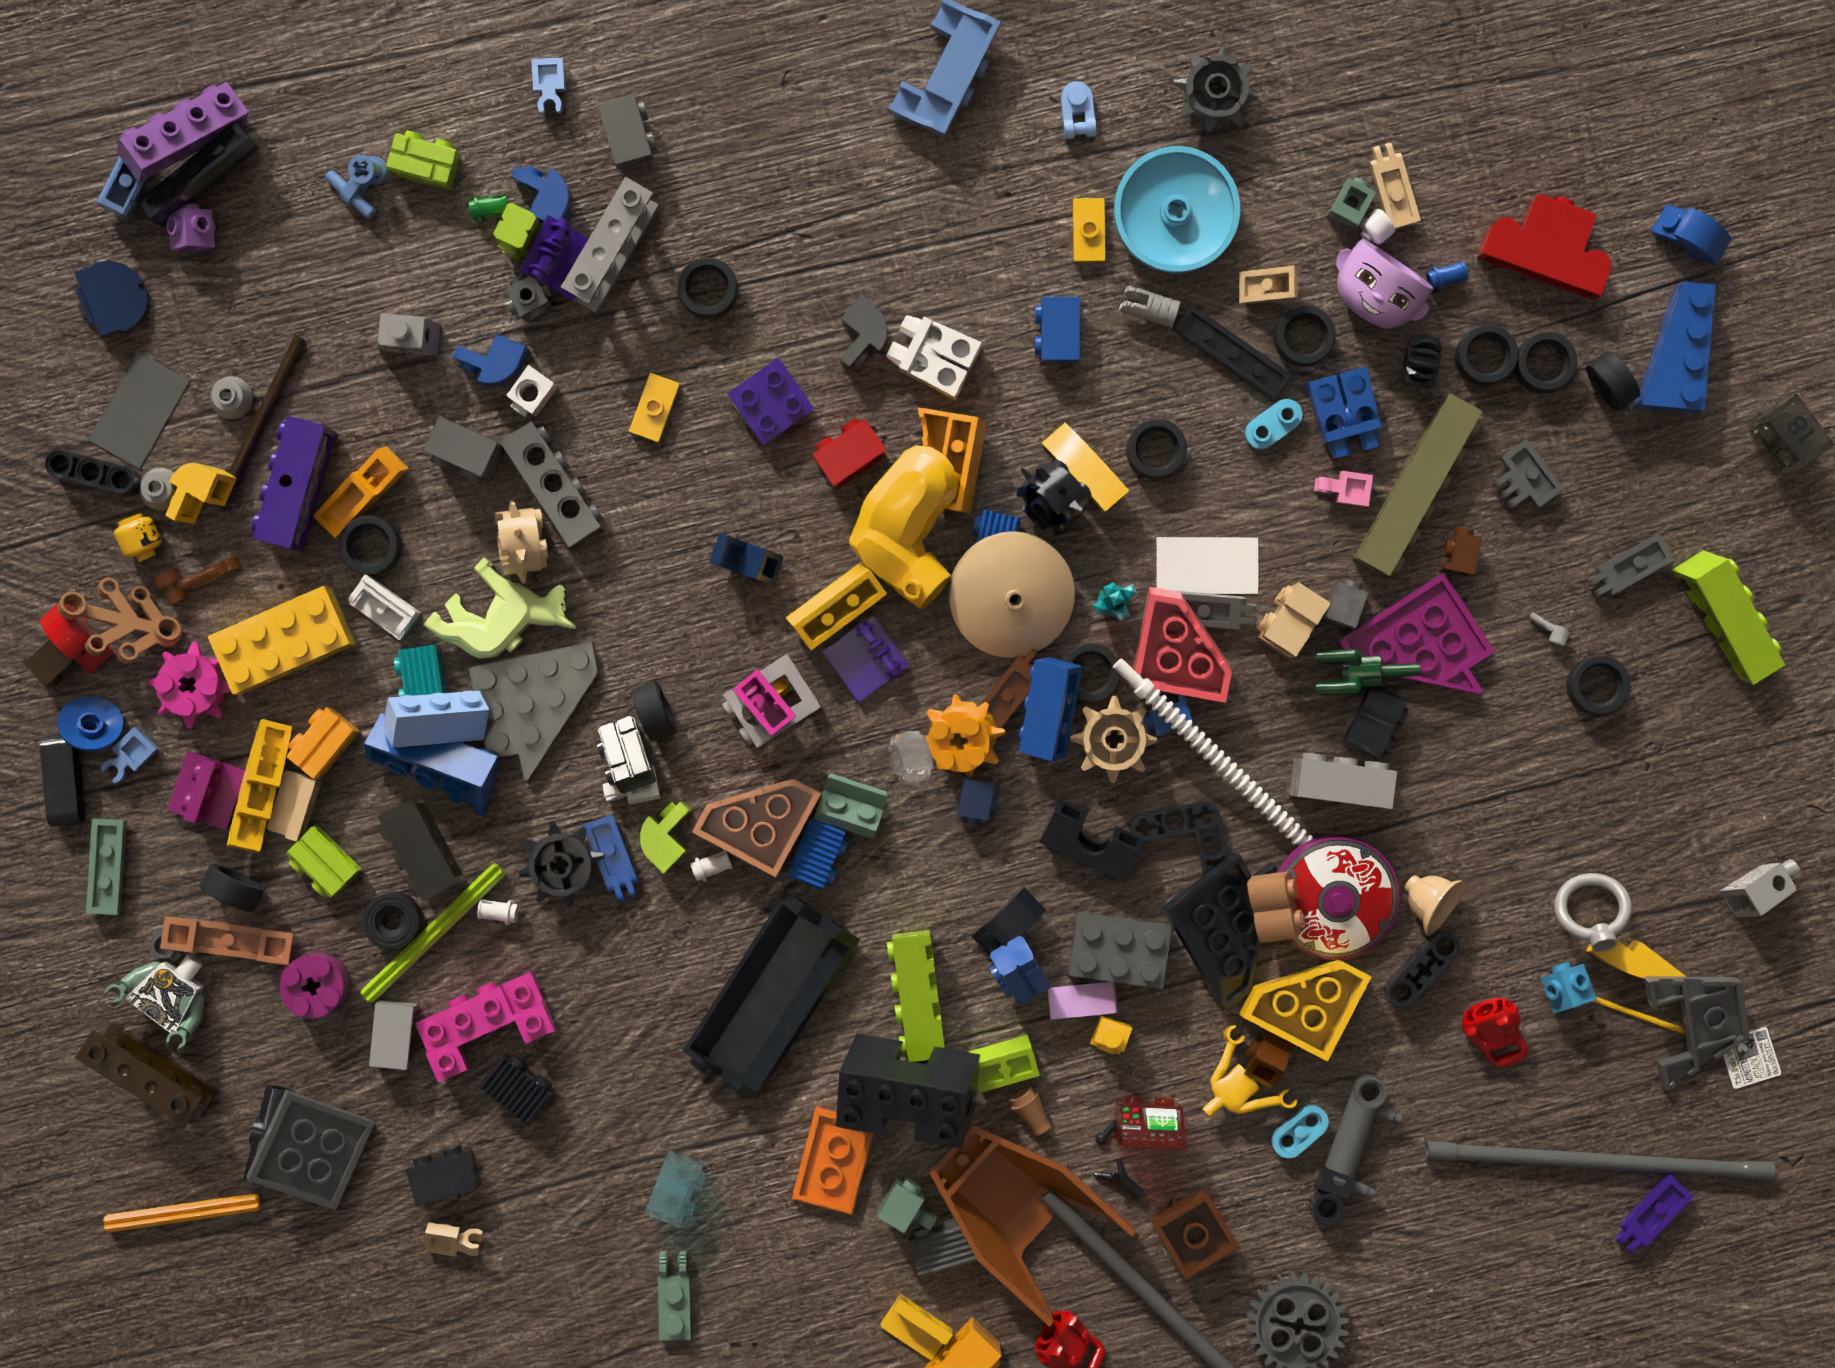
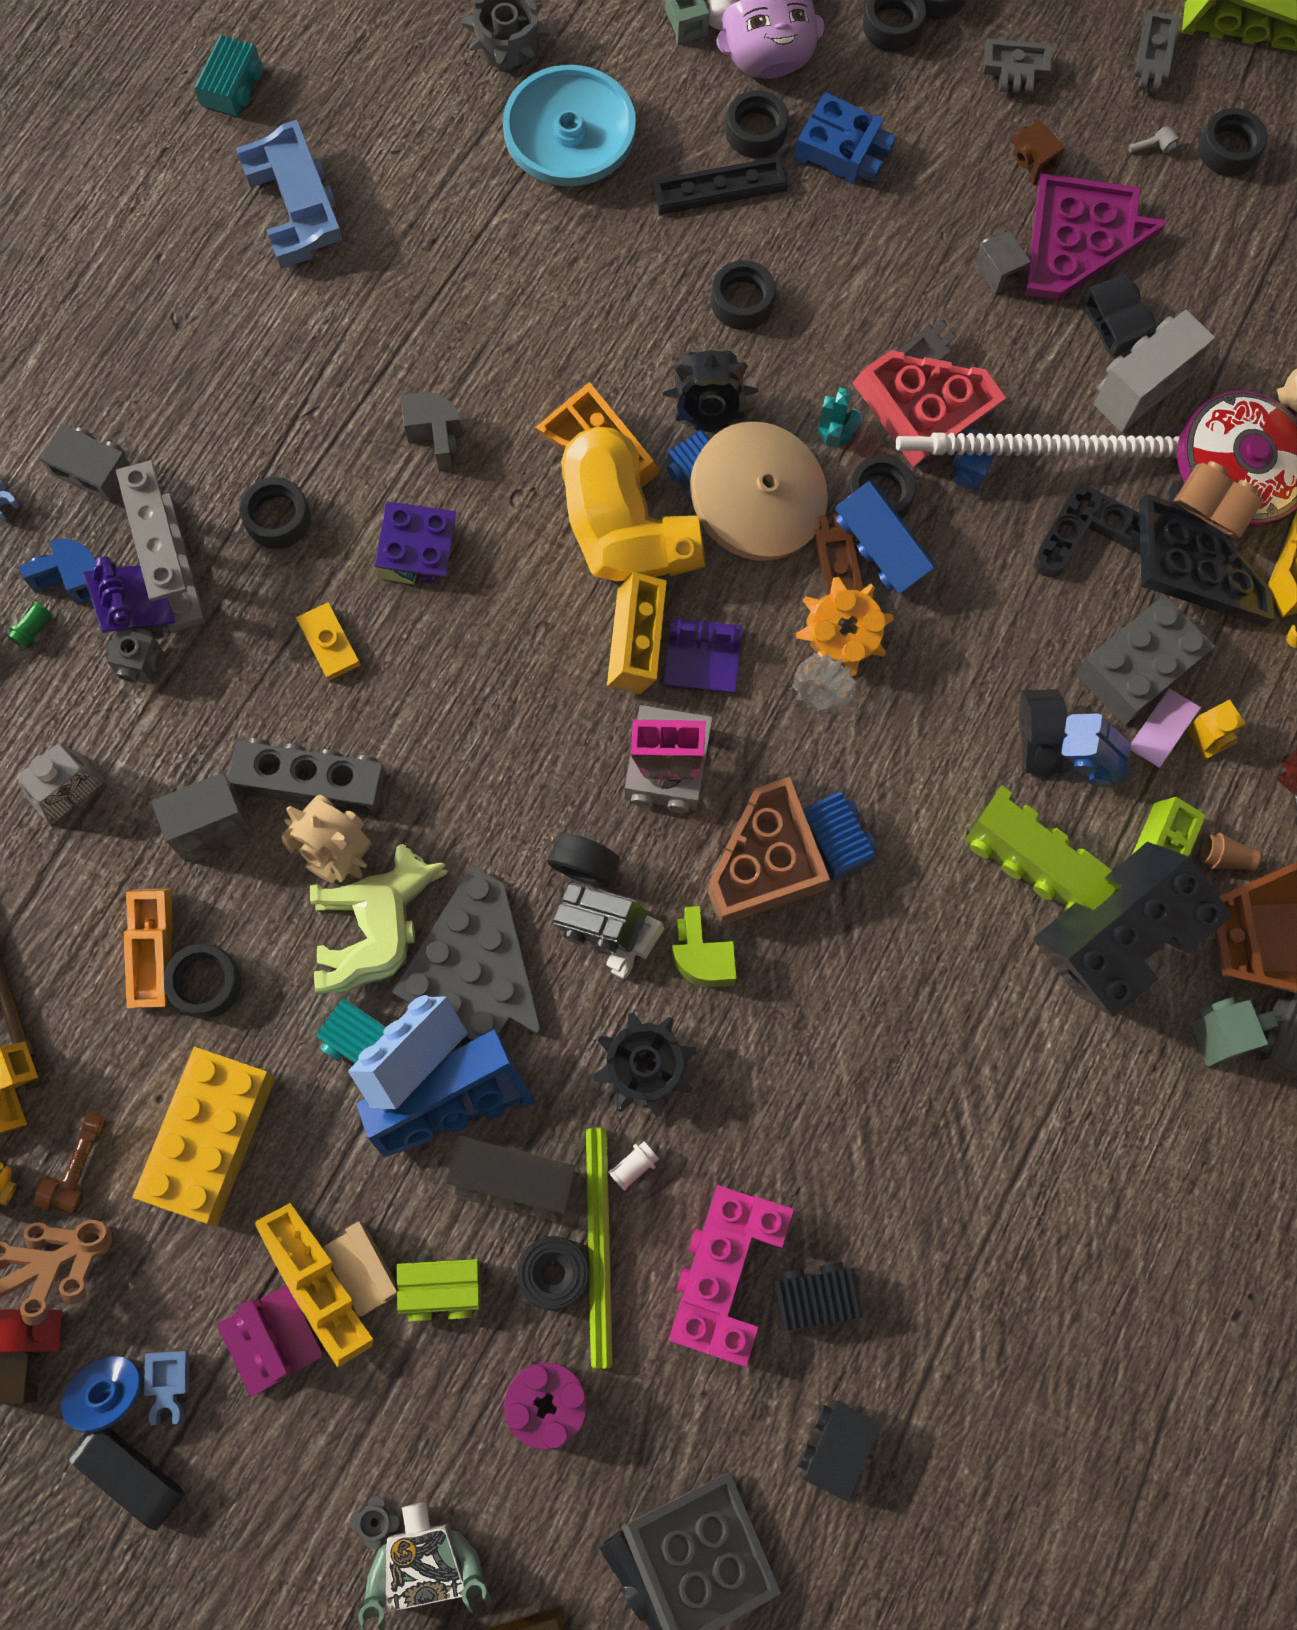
camera: 45 degrees left, 15 degrees down
(106, 866) = (245, 1510): sand green plate -> none
(173, 683) = (169, 1281): dark pink brick -> none
(226, 939) = (424, 1454): nougat slope -> none
(232, 887) = (381, 1398): black tyre -> none
(293, 483) = (81, 992): dark purple brick -> none
(322, 742) = (330, 1186): light orange brick -> none
(383, 607) = (266, 1018): white hinge -> none
(392, 1035) = (661, 1372): light grey panel -> none
(447, 1240) = (906, 1503): tan plate -> none
(501, 364) = (164, 733): blue brick -> none
(516, 231) = (71, 610): lime brick -> none
(545, 388) = (210, 710): white brick -> none
(617, 865) = (691, 1022): blue hinge -> none
(674, 1299) = (1146, 1333): sand green hinge -> none
(675, 1188) = (1042, 1232): clear light blue brick -> none
(711, 865) = (765, 937): white pin -> none
(746, 559) = (527, 674): dark blue brick -> none
(770, 996) = (932, 986): black panel -> none
(832, 1164) = (1132, 1068): orange tile -> none
(849, 453) = (520, 512): red brick -> none
(851, 805) = (821, 768): sand green bracket -> none
(924, 355) = (507, 388): white hips -> none
(976, 801) = (908, 666): dark blue brick -> none
(1058, 330) = (578, 284): blue brick -> none
(1077, 100) = (413, 134): light blue plate -> none
(1086, 467) = (741, 342): yellow slope -> none
(1088, 230) = (521, 205): yellow plate -> none
(1111, 856) = (1058, 595): black arch -> none
(1124, 754) = (956, 513): tan brick -> none
(1157, 308) = (626, 207): light grey hinge -> none
(1208, 564) = (876, 329): white sticker -> none
(1268, 285) = (696, 106): tan slope -> none
(1273, 423) = (804, 199): medium azure plate -> none
(1293, 619) = (981, 300): tan brick -> none
(1350, 488) = (906, 186): bright pink plate -> none
(1359, 671) = (1068, 288): dark green plant -> none
(1417, 486) = (953, 139): olive brick -> none
(1421, 361) = (857, 55): black gear -> none

